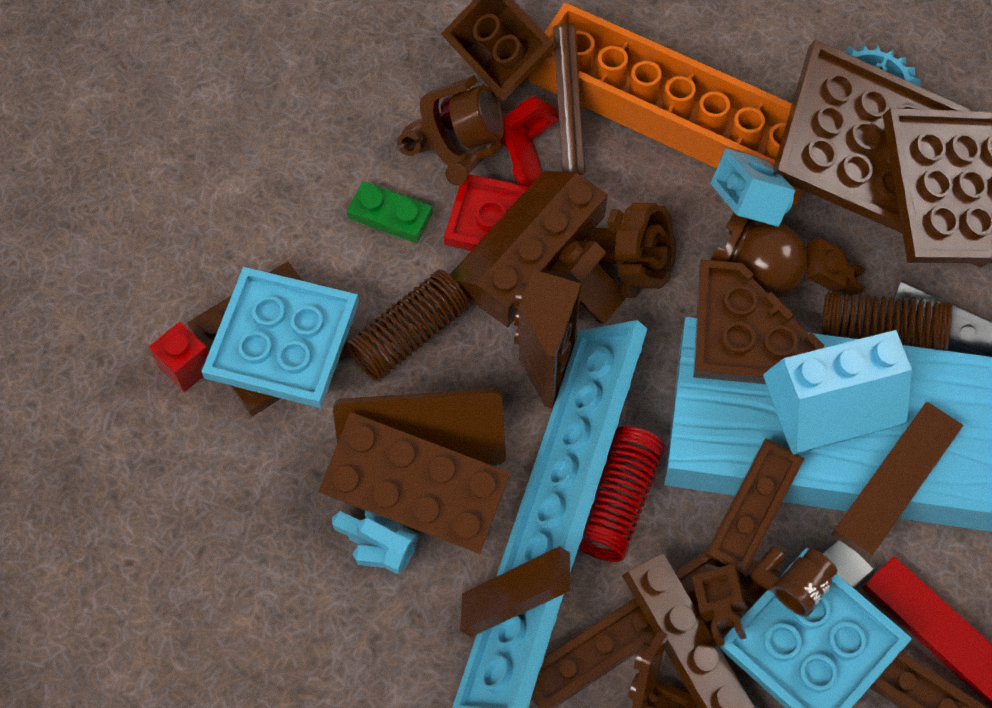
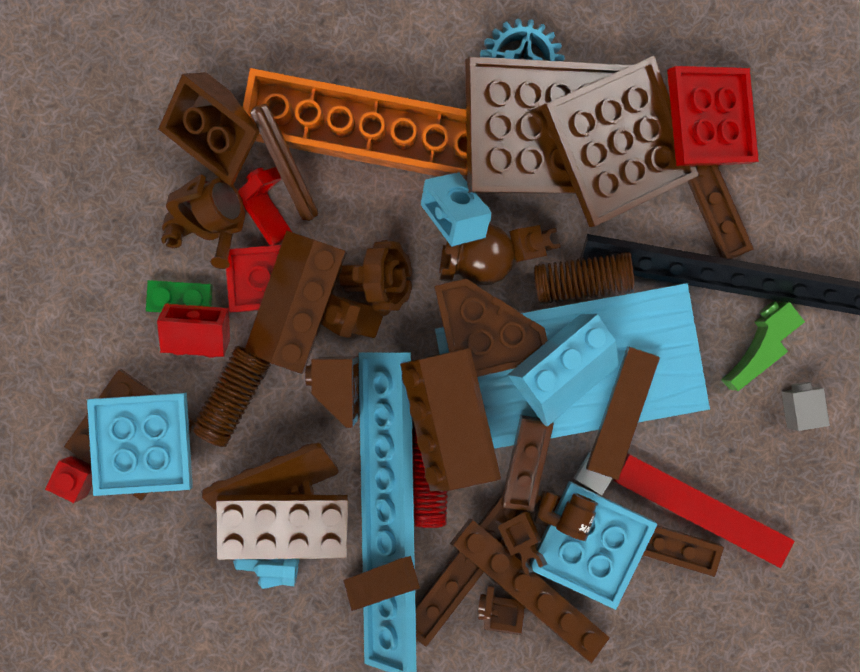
camera: 15 degrees left, 25 degrees up
(395, 241) = (194, 330): none -> red brick
(674, 406) = (450, 420): none -> reddish brown slope

